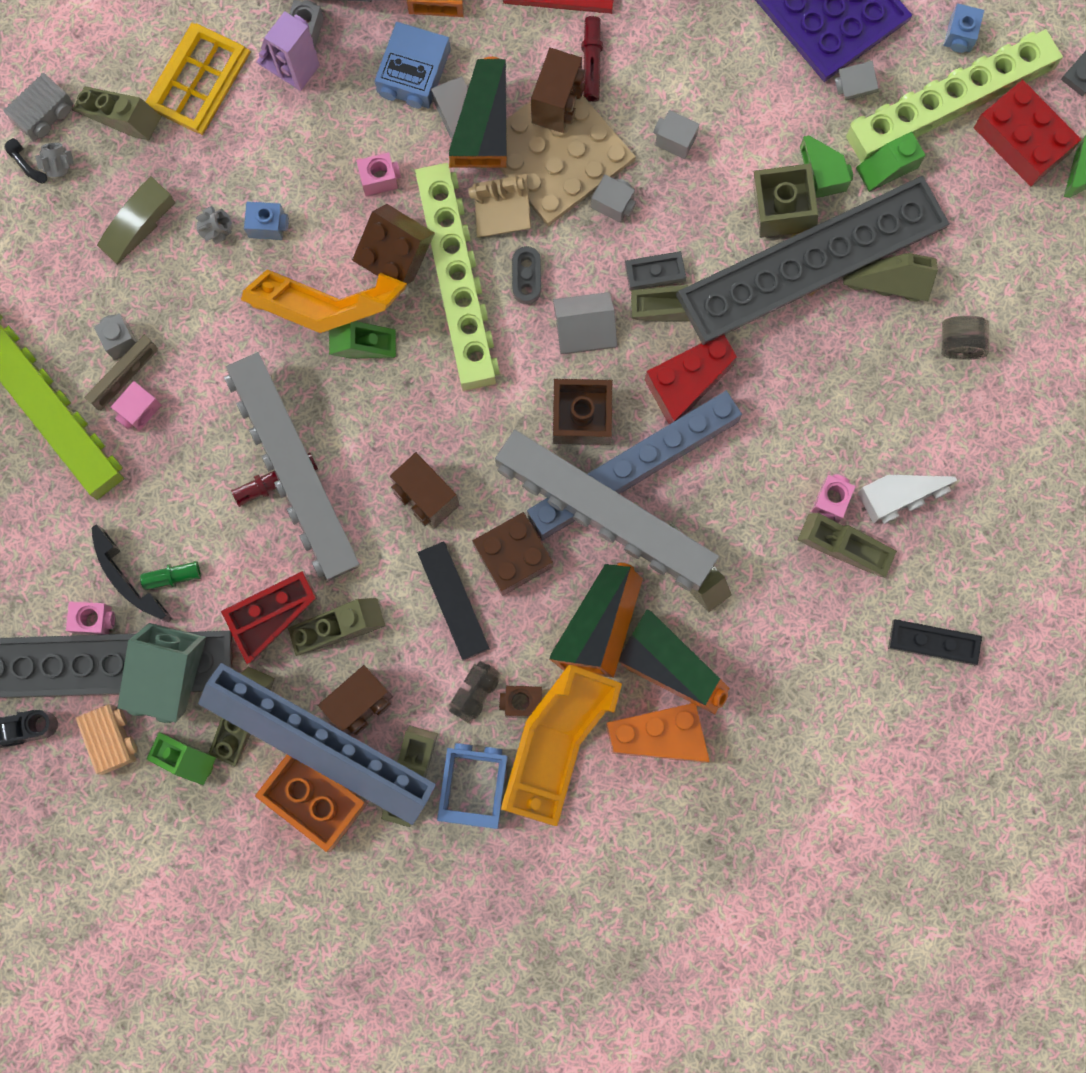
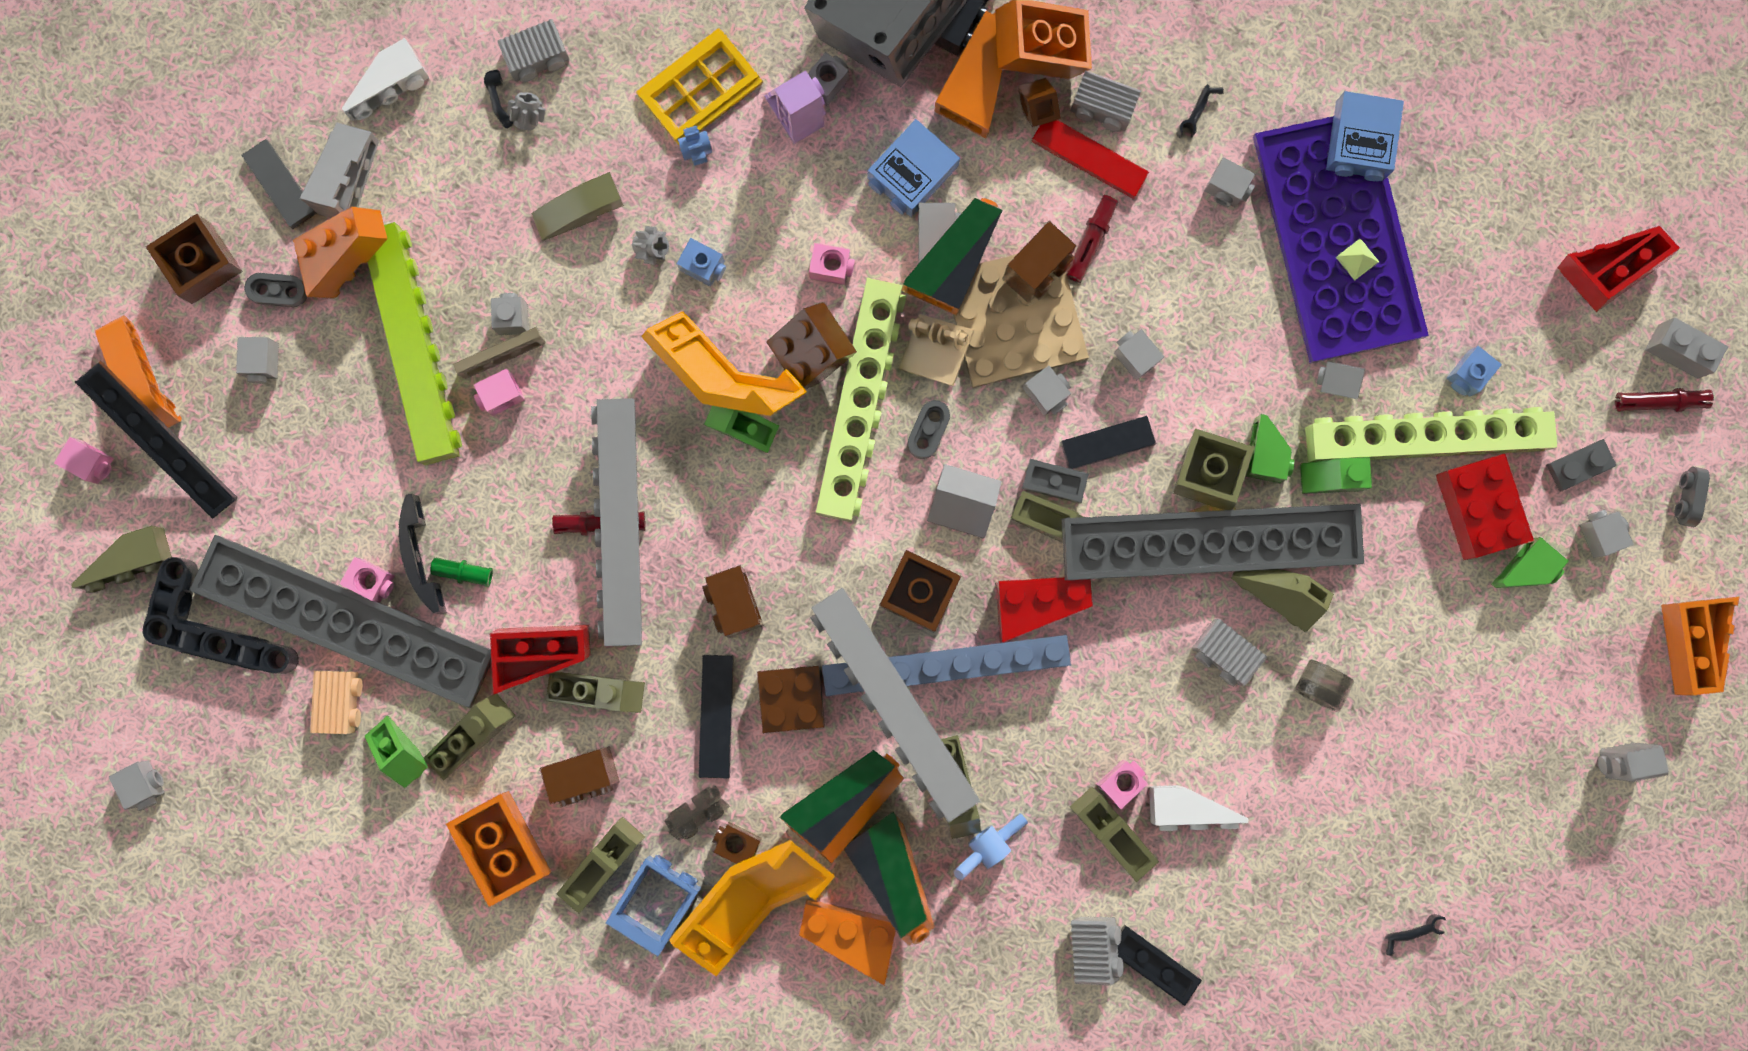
camera: 20 degrees right, 5 degrees up
(118, 111) = (607, 88): olive slope -> none
(160, 672) = (410, 664): sand green slope -> none
(215, 125) = (695, 145): none -> medium blue gear
(316, 743) = (523, 804): sand blue brick -> none
(685, 220) = (1108, 442): none -> black tile
(745, 603) = (989, 846): none -> light blue piece
(871, 348) = (1229, 653): none -> light grey brick
(879, 650) = (1096, 950): none -> light grey brick

